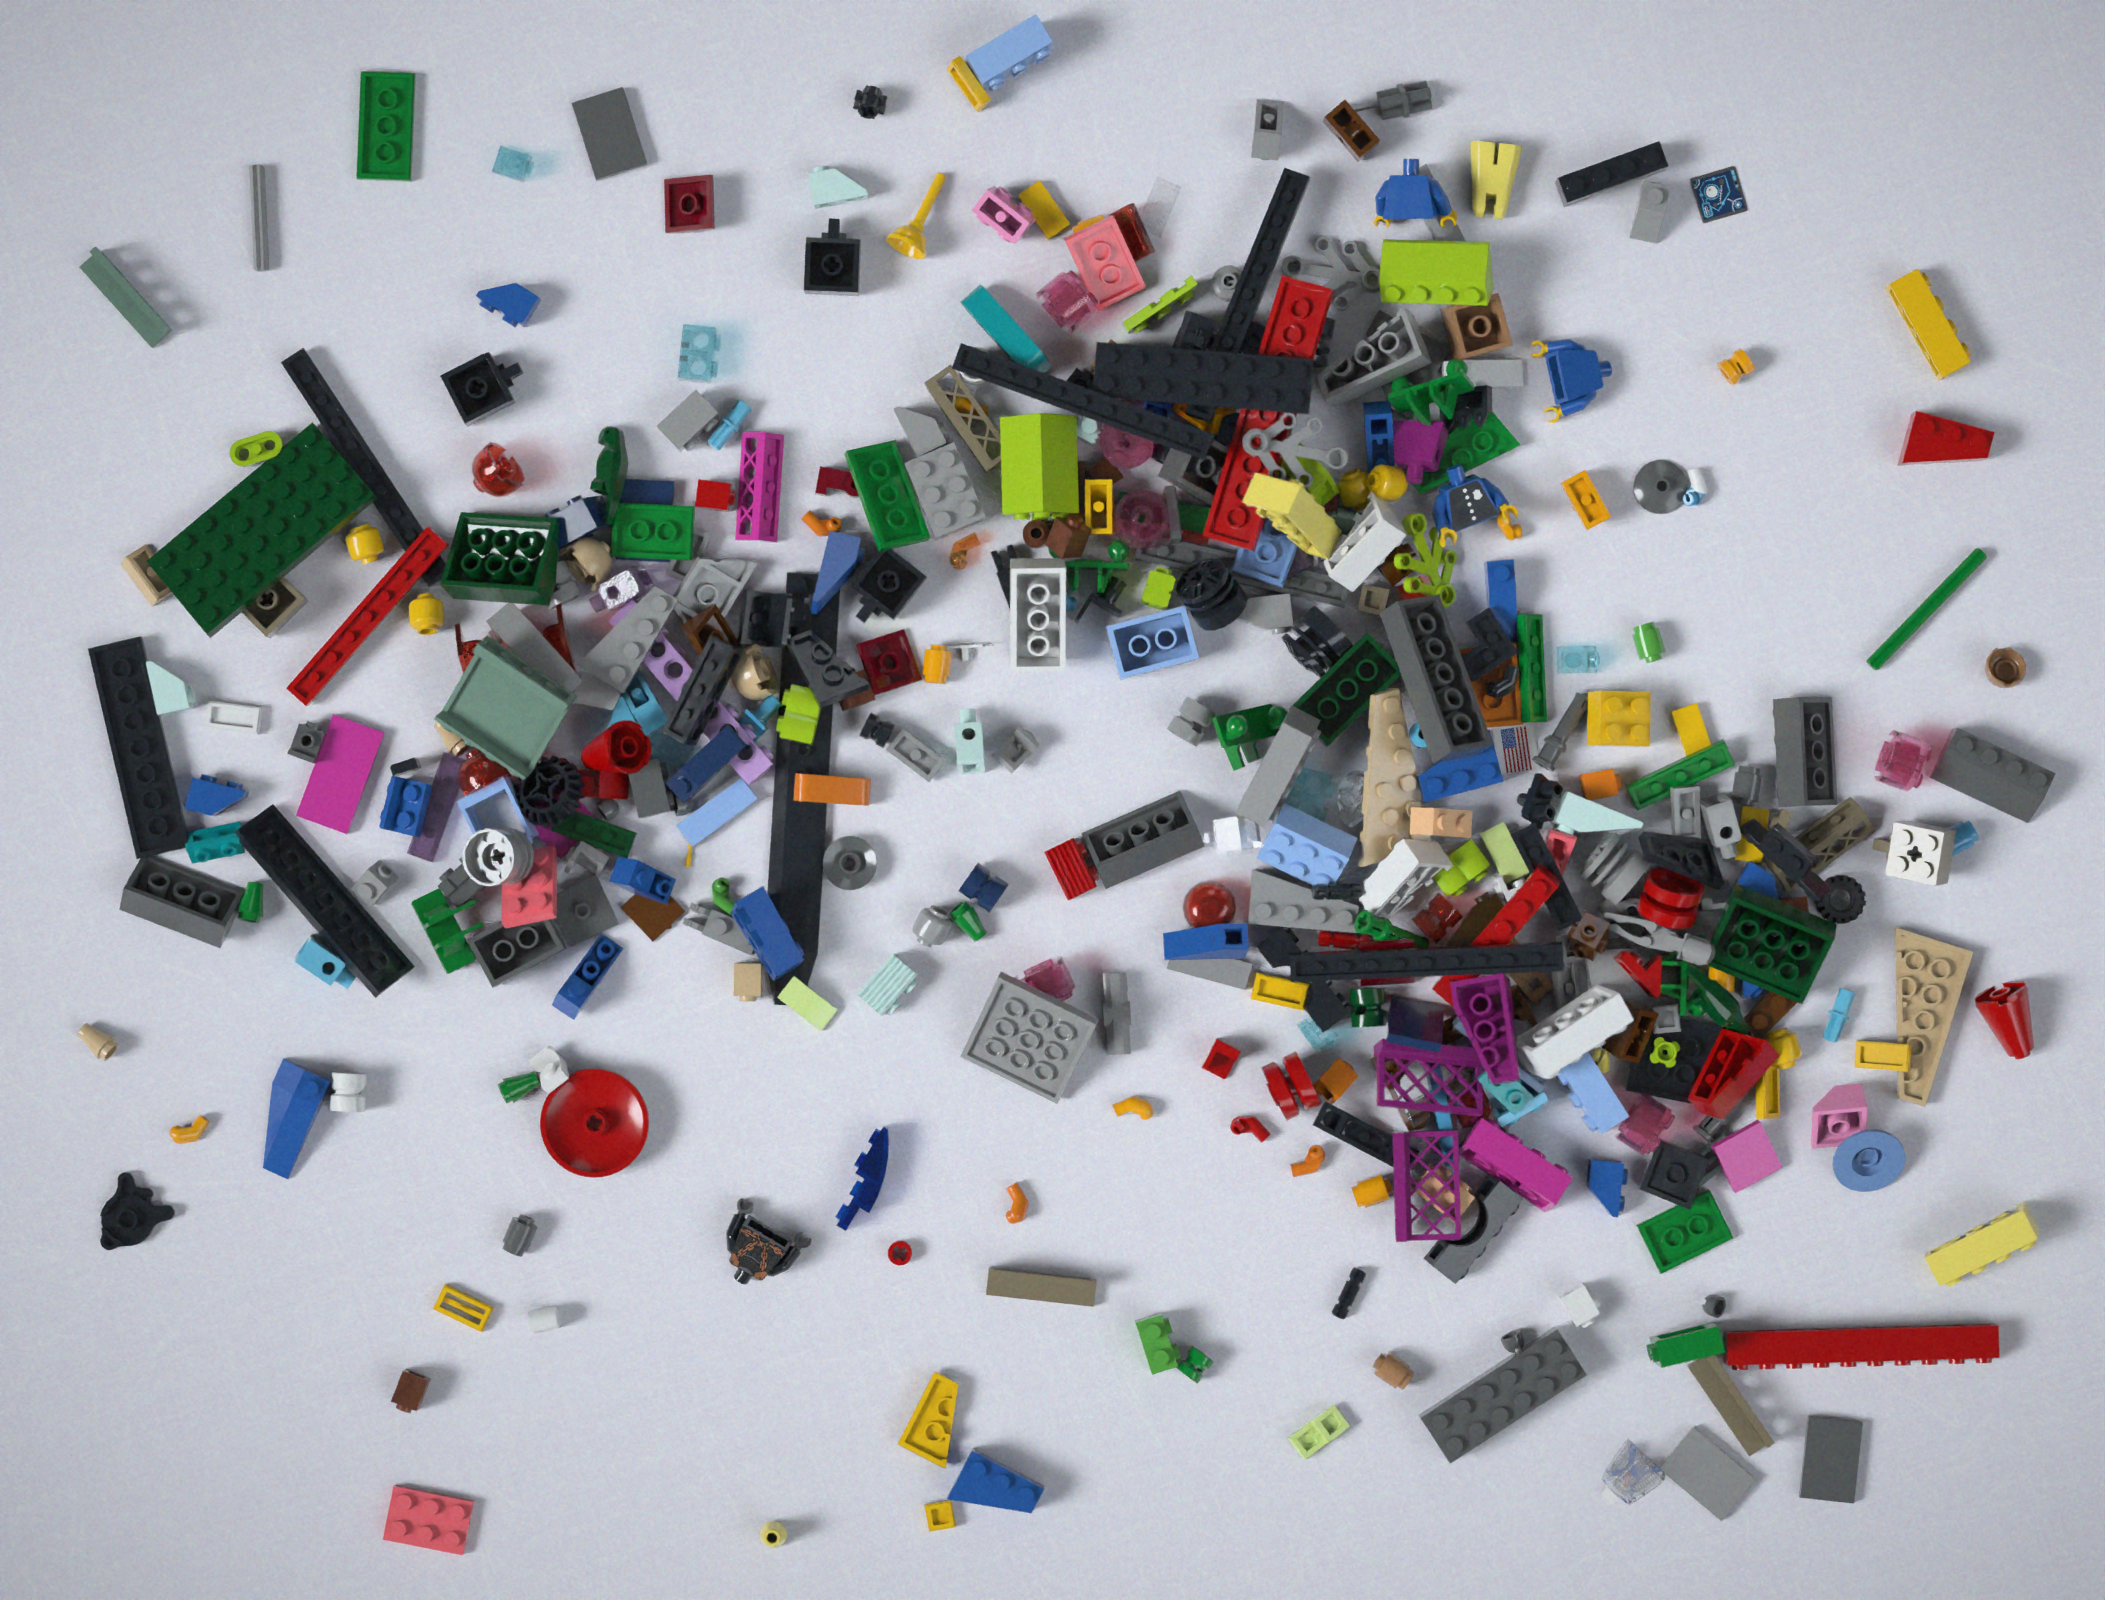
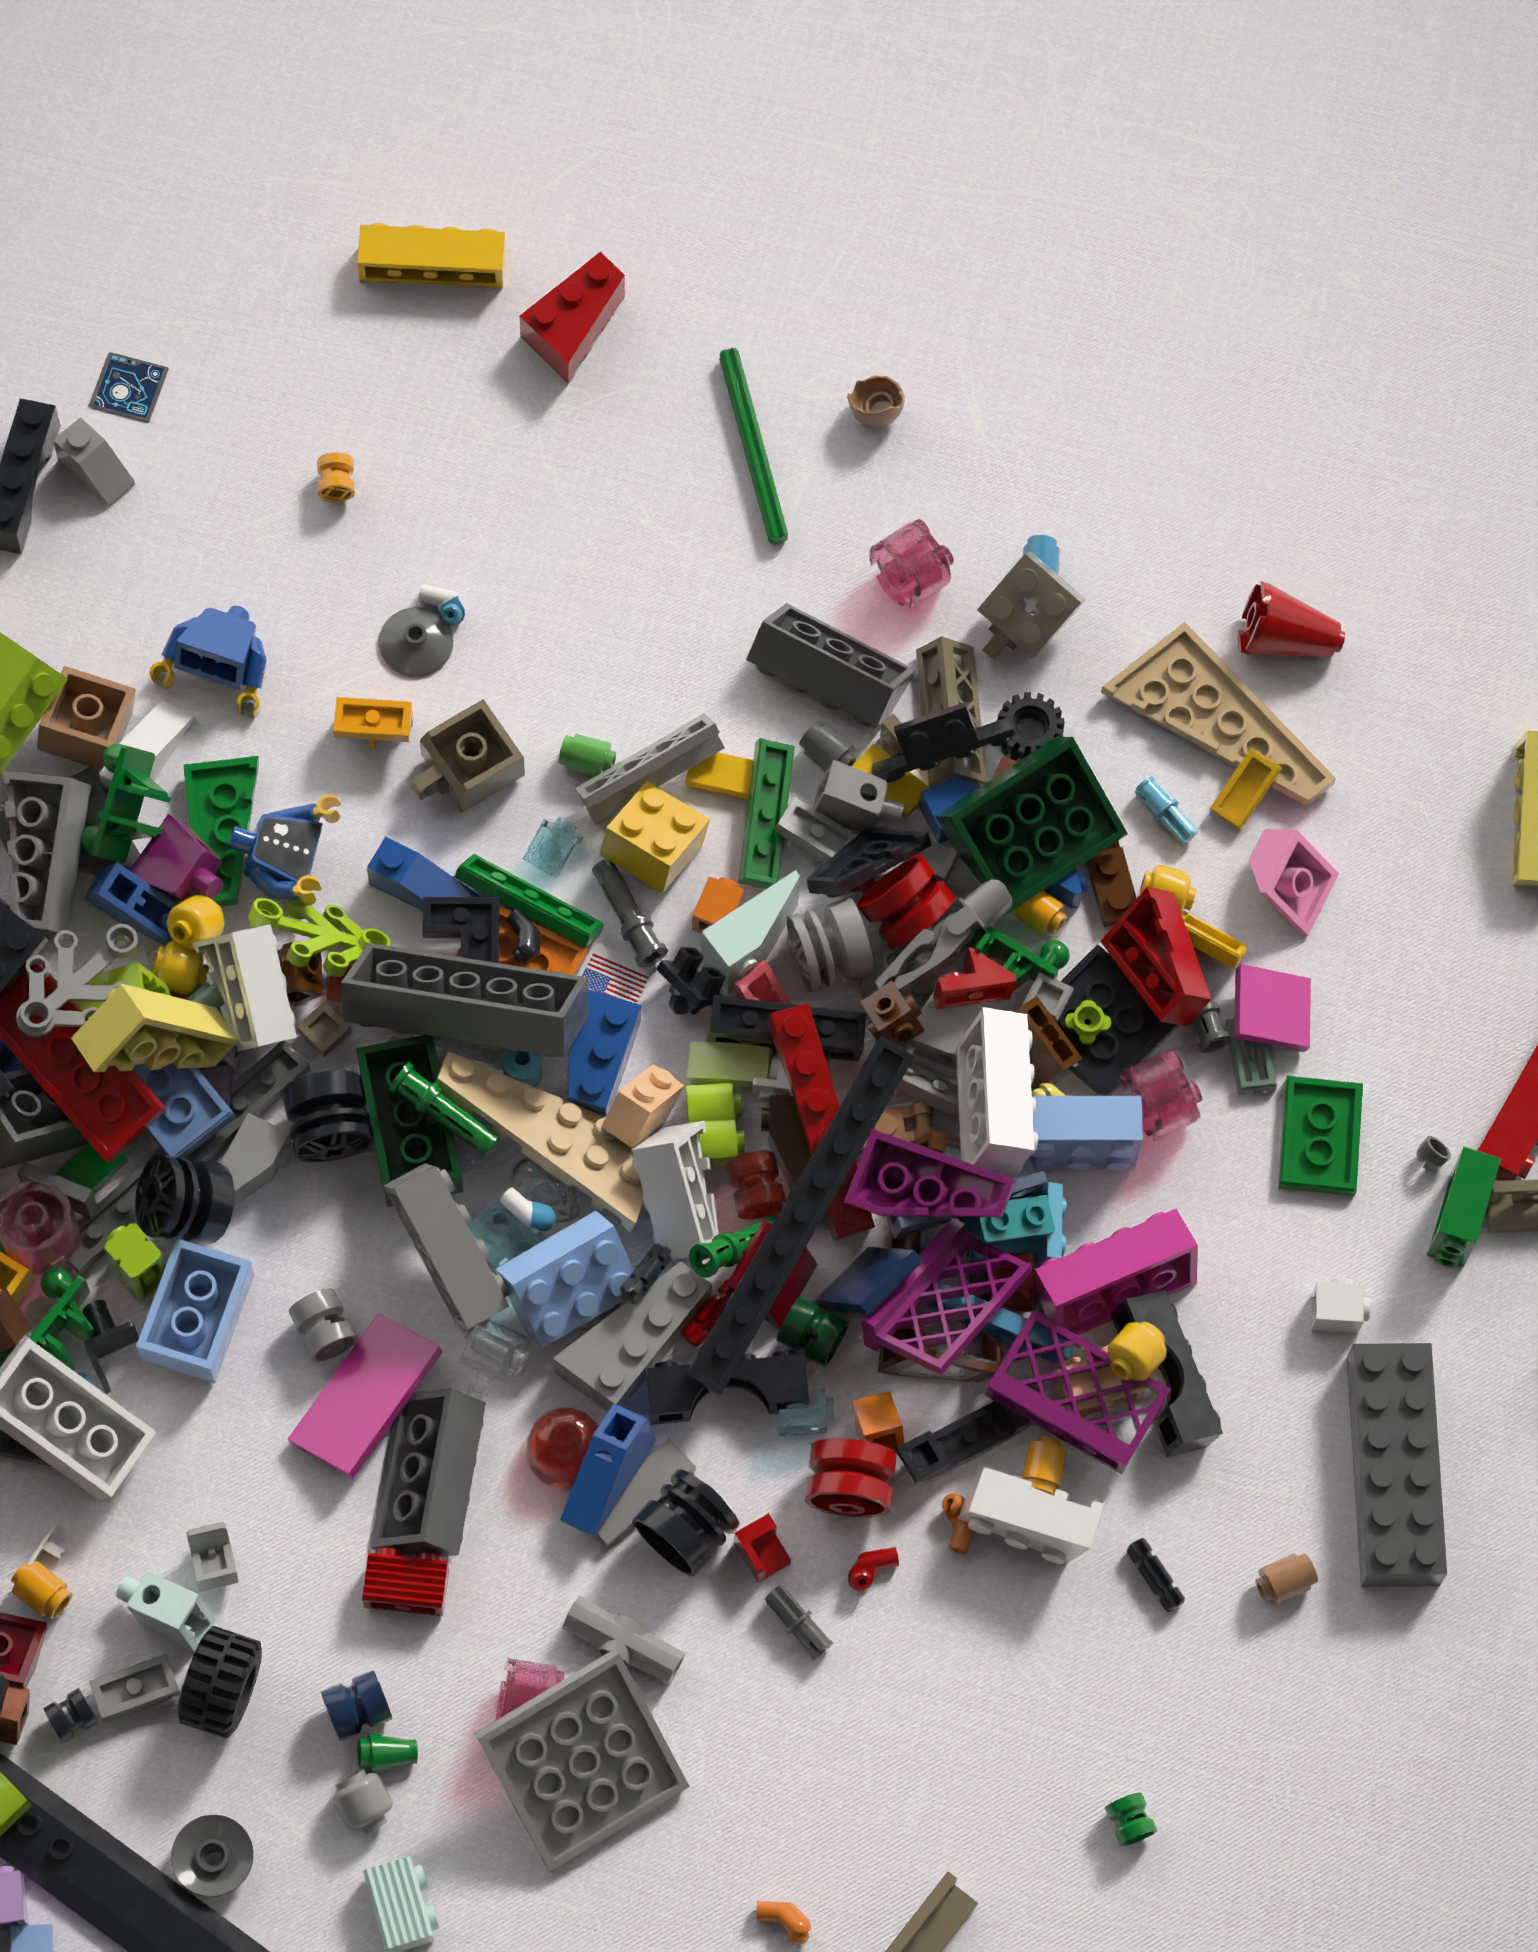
camera: 60 degrees left, 20 degrees down
(832, 789) = (104, 1817): orange beam -> none
(945, 804) = (219, 1682): none -> black tyre
(1135, 1104) = (752, 1690): light orange arm -> none
(1156, 1343) = (1075, 1848): bright green brick -> none
(1166, 772) = (365, 1395): none -> dark pink tile
(1190, 1106) = (798, 1621): none -> dark grey axle
(1194, 538) = (106, 1182): clear red tile -> none
(1205, 1007) = (692, 1515): none -> black wheel
(1245, 729) = (373, 1267): green piece -> none
(1279, 991) = (725, 1428): yellow tile -> none
(1318, 1432) = (1310, 1720): yellowish green slope -> none
(1332, 800) = (528, 1212): none -> arm
(1333, 1202) = (1030, 1516): none -> white wedge
(1360, 698) = (428, 1098): none -> green pin
(1468, 1207) = (1137, 1351): none -> yellow head
(1472, 403) = (172, 771): black plate -> none
(1510, 531) = (349, 830): light orange arm -> none
(1512, 1340) = (1334, 1413): dark grey hinge -> none
(1593, 558) = (467, 778): none -> dark tan hinge
(1605, 1183) = (1207, 1188): blue slope -> none
(1662, 686) = (654, 764): none -> light grey fence
(1675, 1174) = (1244, 1099): black plate -> none
(1717, 1002) = (1063, 924): dark green animal -> none
(1868, 1160) = (1362, 874): medium blue hat -> none
(1992, 775) = (990, 484): dark grey slope -> none

